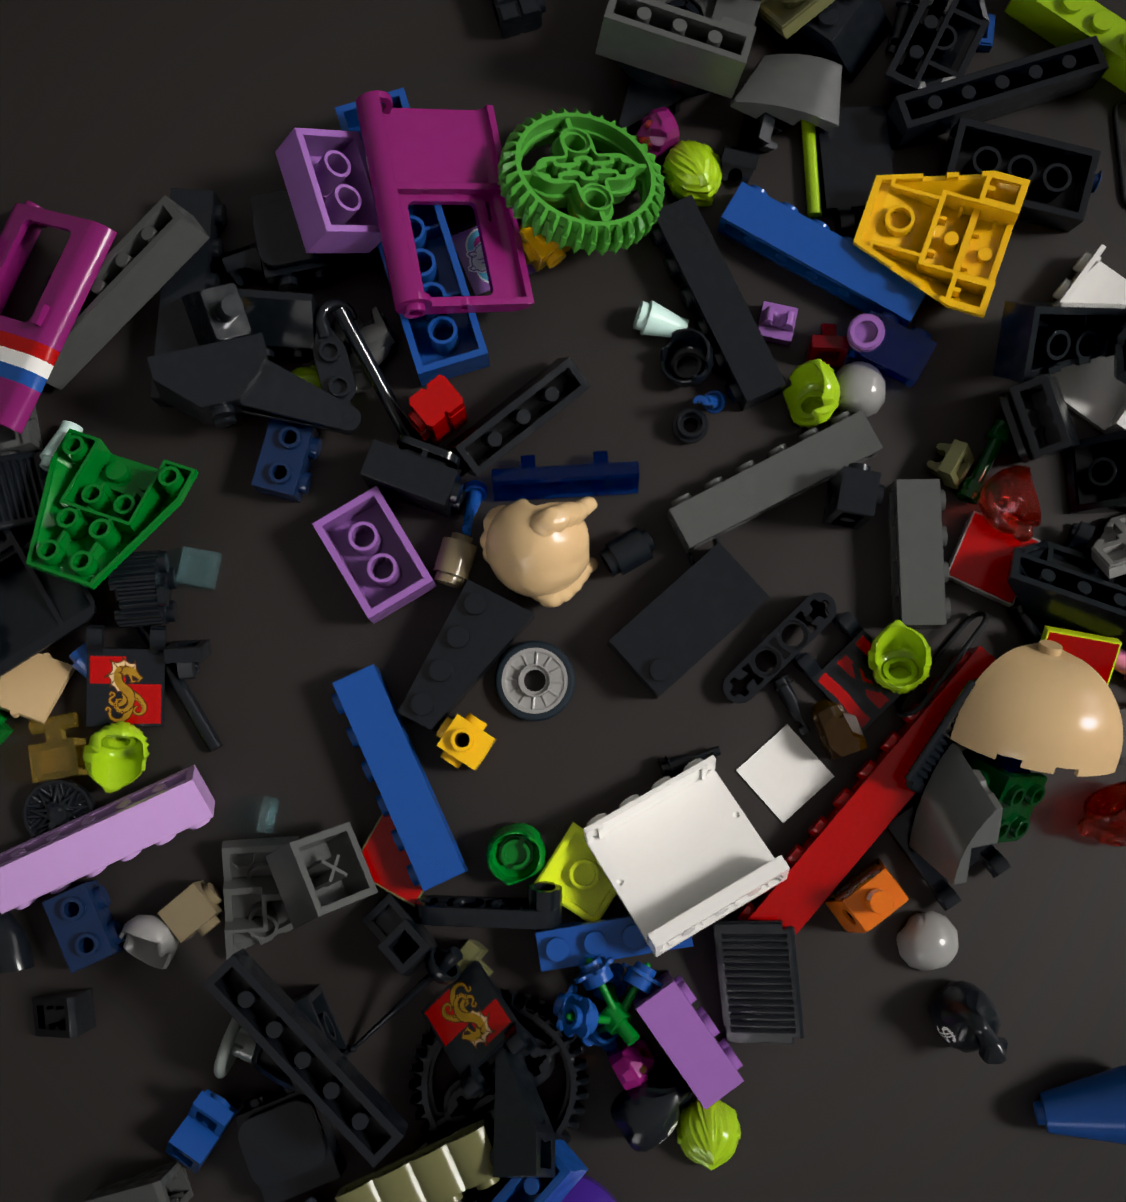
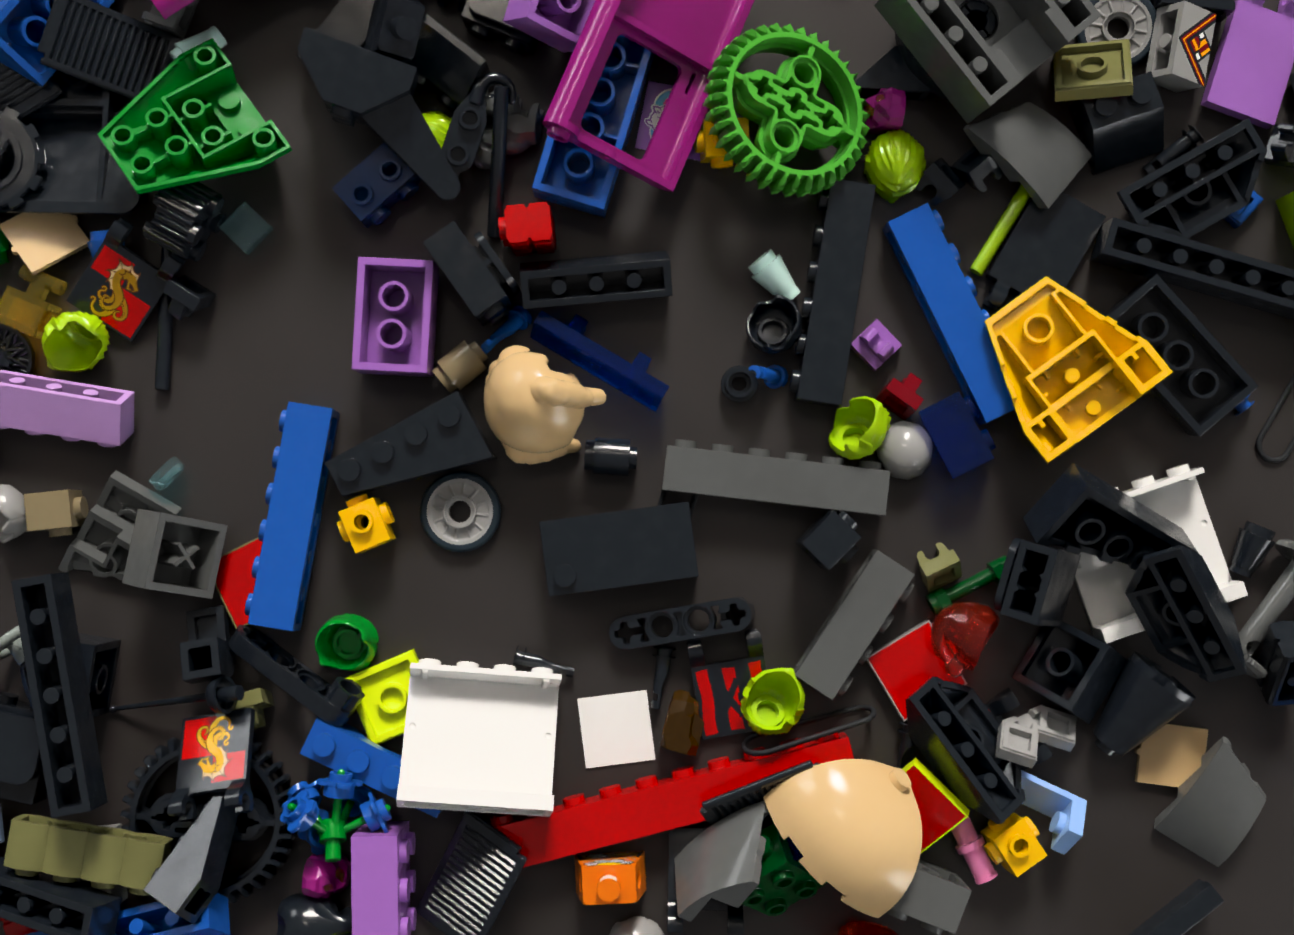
camera: 40 degrees right, 5 degrees up
(865, 333) = (938, 407): medium lavender tile -> none

